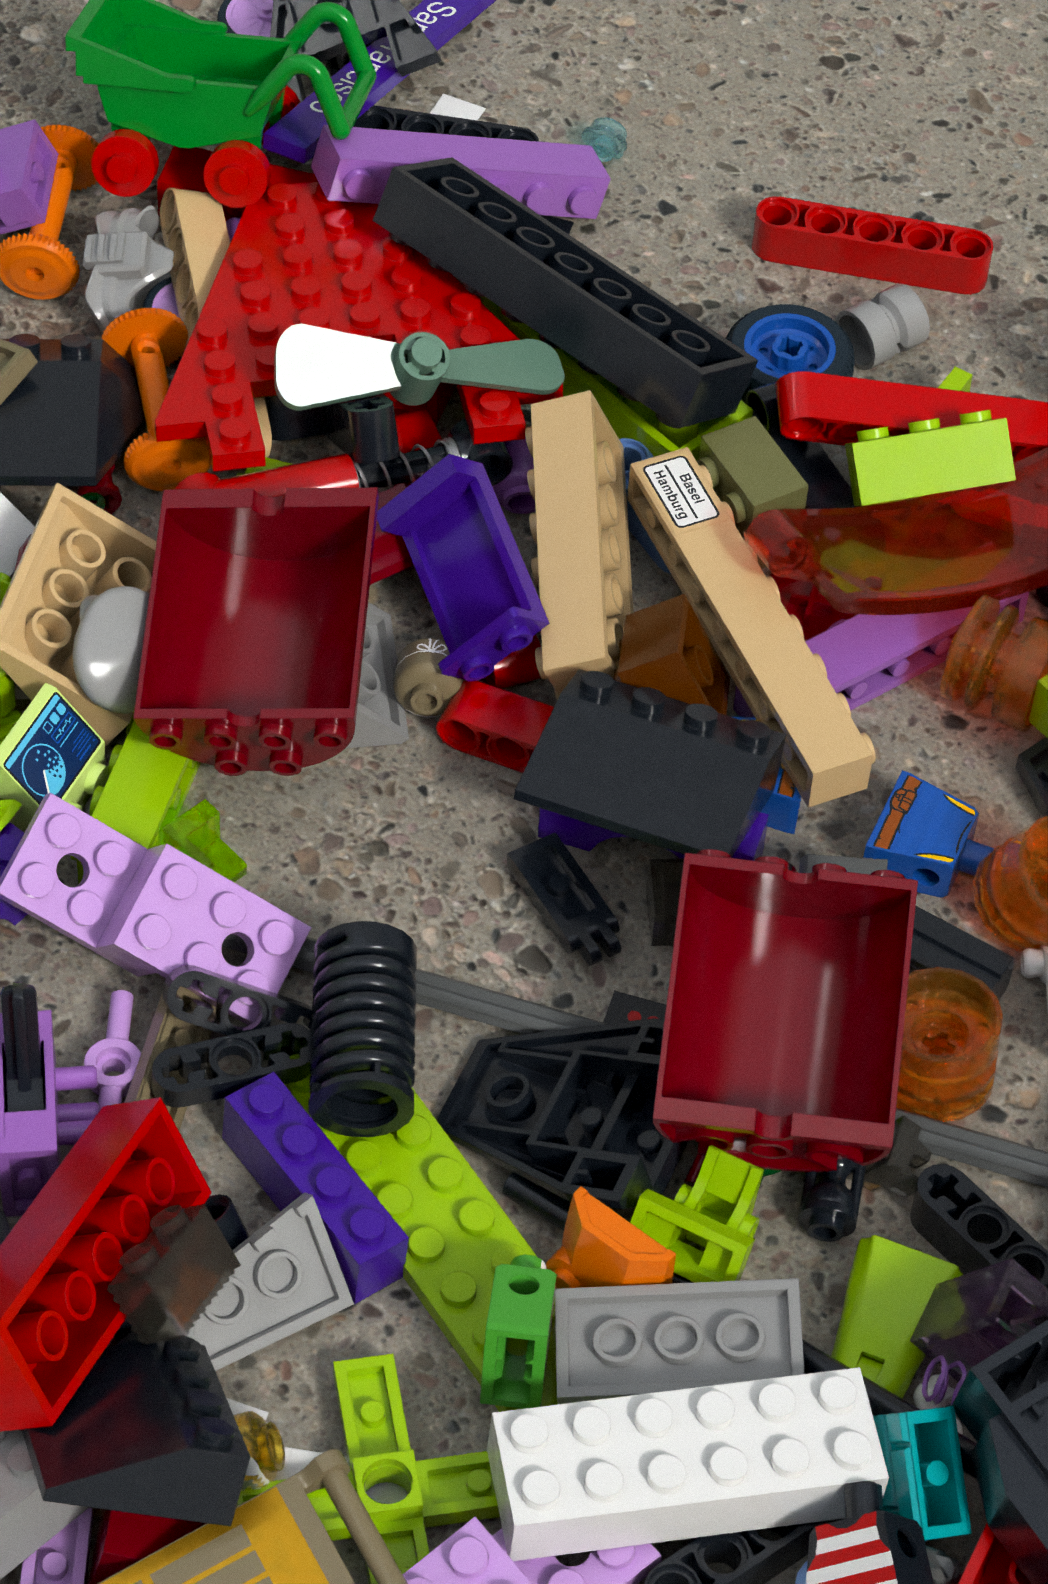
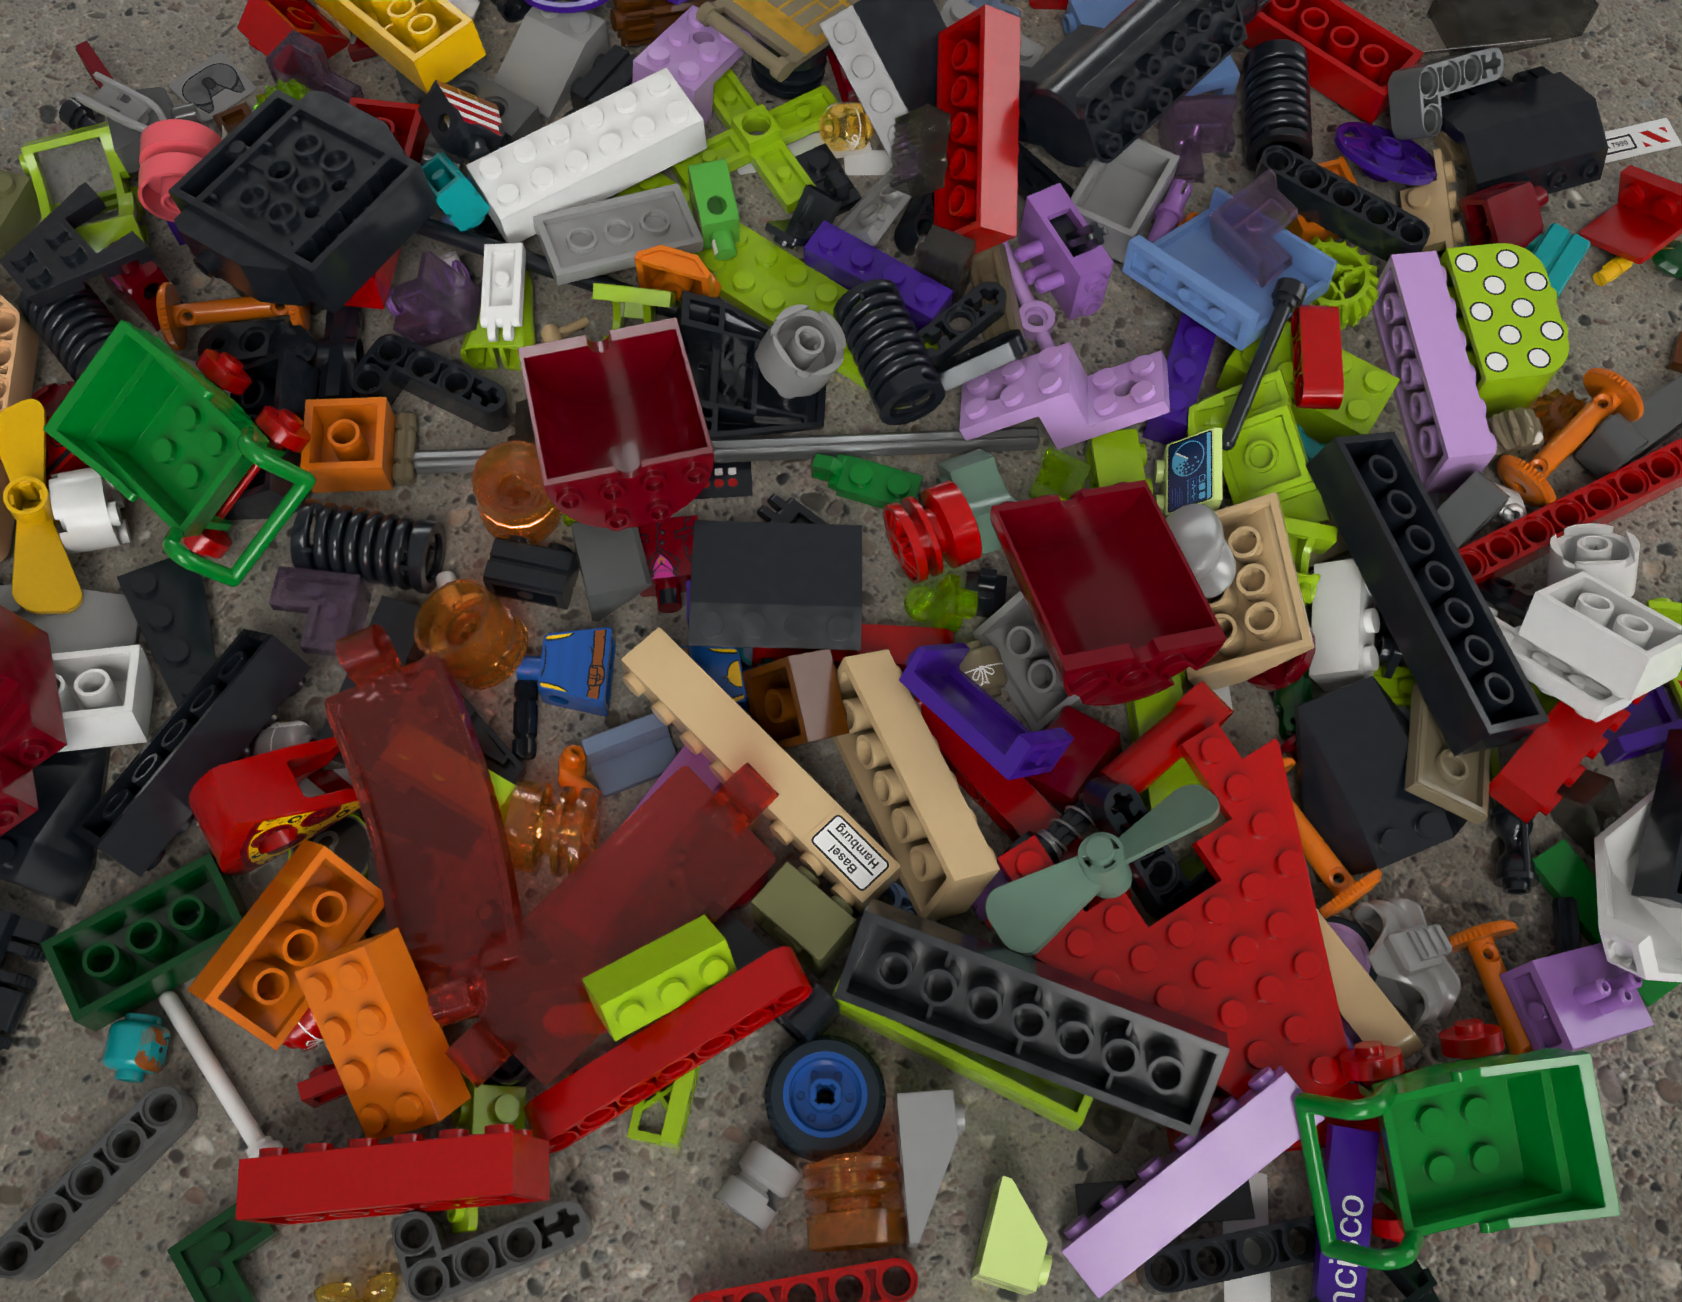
camera: 160 degrees right, 15 degrees up
(219, 1142) = (946, 259): none -> clear smoke brick
(305, 1395) = (829, 176): none -> black hinge
(324, 856) = (981, 486): none -> sand green brick
(372, 767) = (990, 590): none -> black tile
(390, 1304) = (809, 214): none -> black bracket
(414, 817) = (932, 532): none -> red wheel
(444, 738) = (943, 605): none -> clear neon green hips
(455, 945) = (865, 480): none -> green hinge
(482, 1084) = (801, 351): none -> light grey brick
(660, 199) = (1011, 1243): none -> yellowish green slope
(714, 266) = (925, 1138): none -> light grey slope
(796, 259) = (853, 1203): none -> clear orange wheel
(821, 1286) = (552, 333): none -> tan hand
(880, 1313) = (503, 289): none -> white hinge
(903, 742) = (629, 754): none -> sand blue panel
(961, 741) = (573, 769): none -> orange arm
(1004, 809) = (525, 719): none -> black axle

